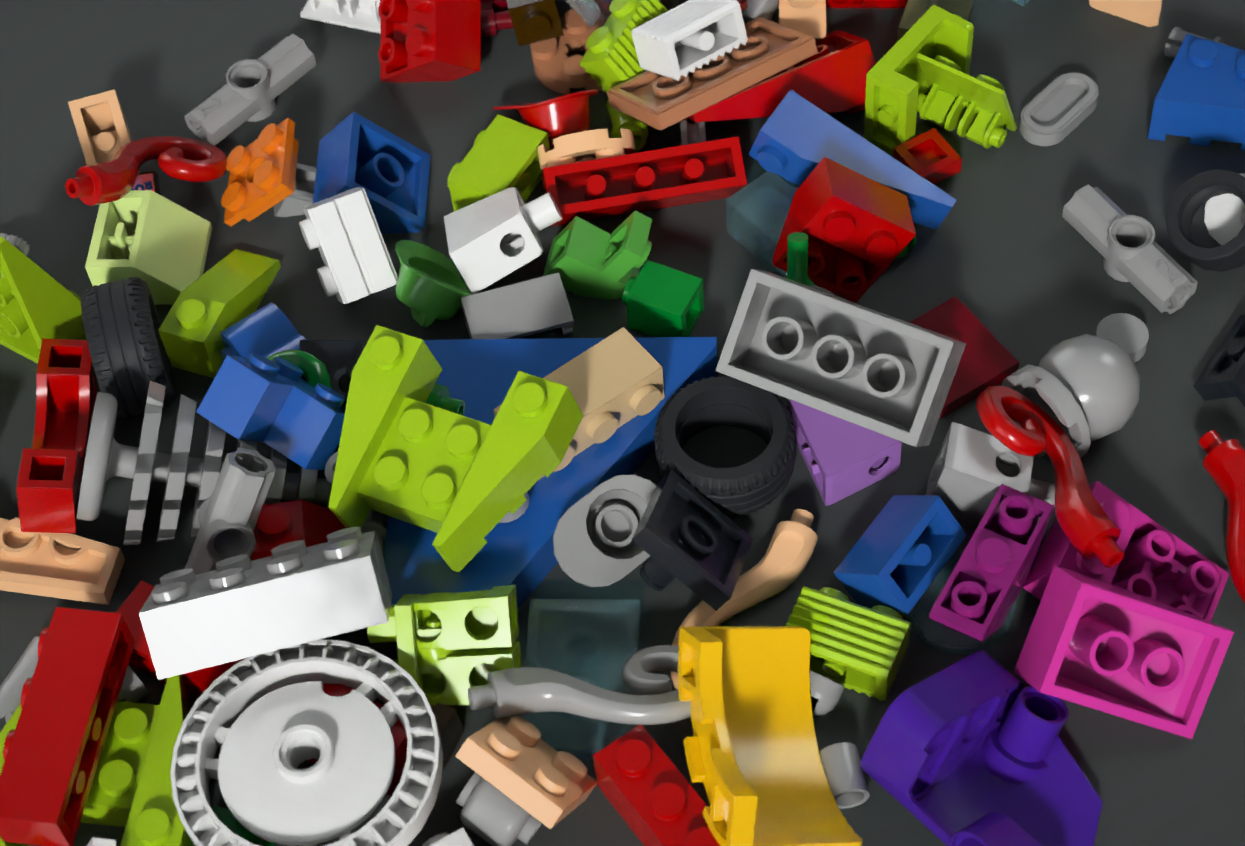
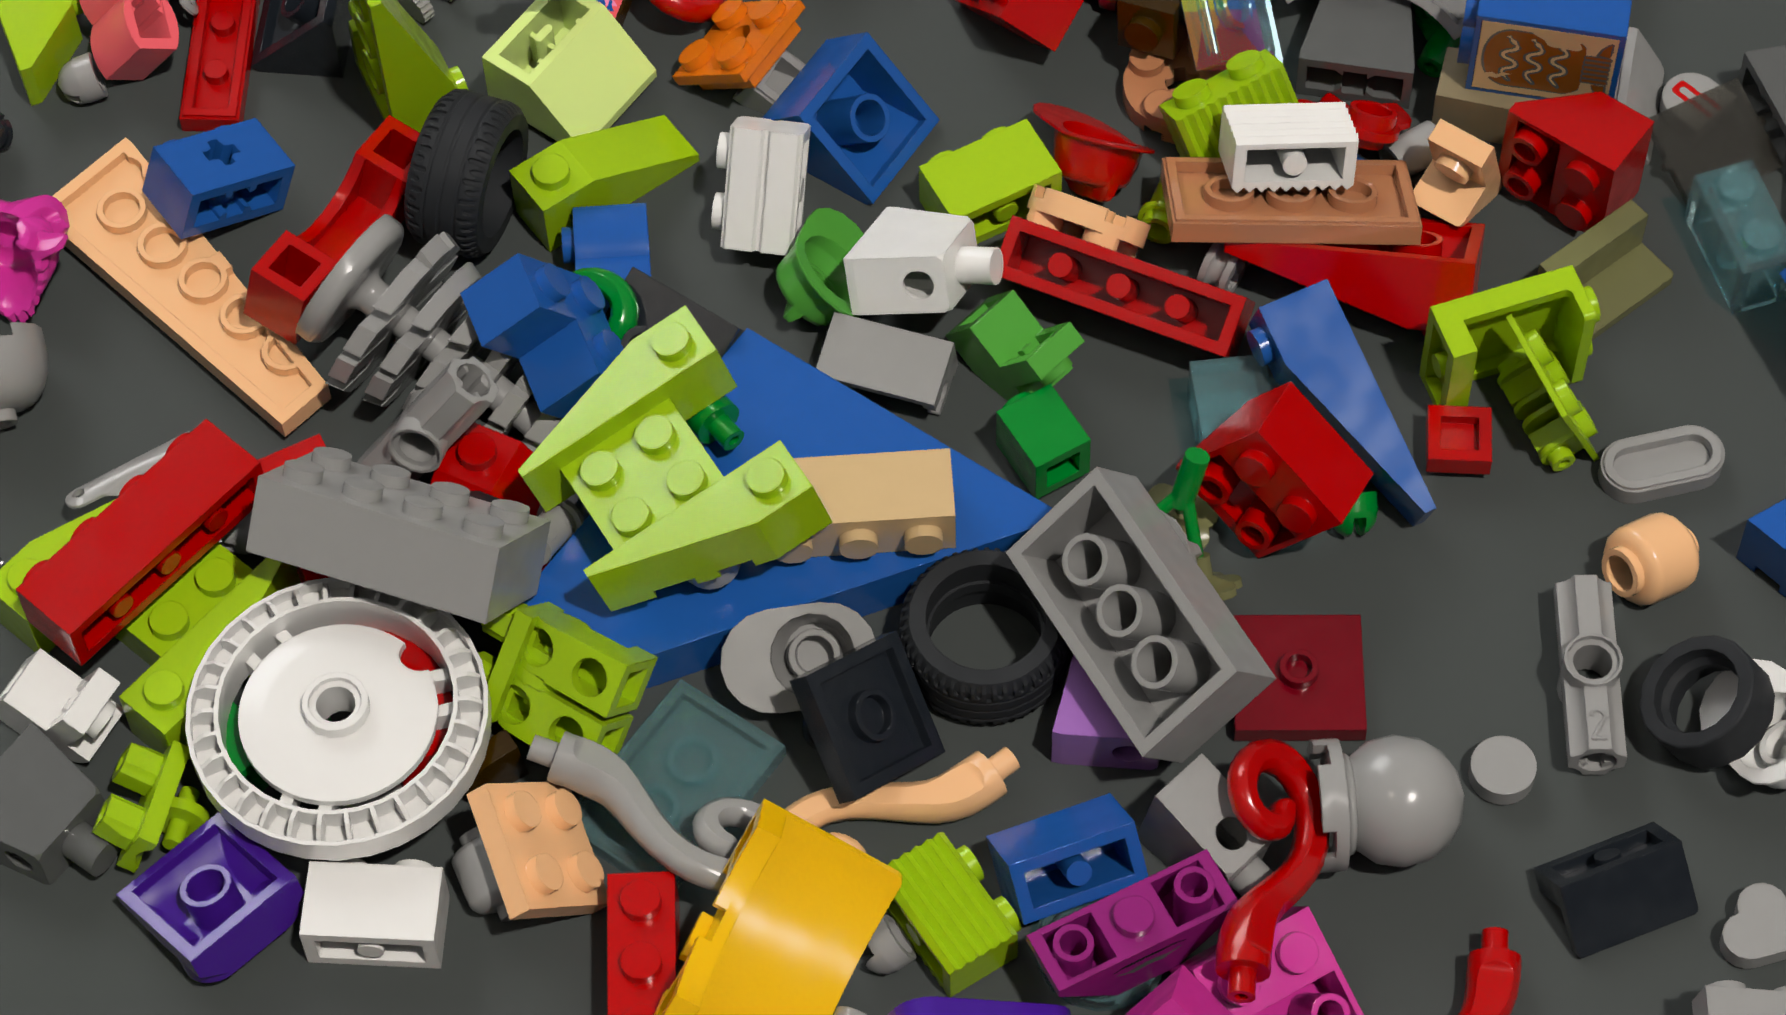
camera: 30 degrees right, 5 degrees up
(1107, 159) = (1651, 559): none -> light nougat head

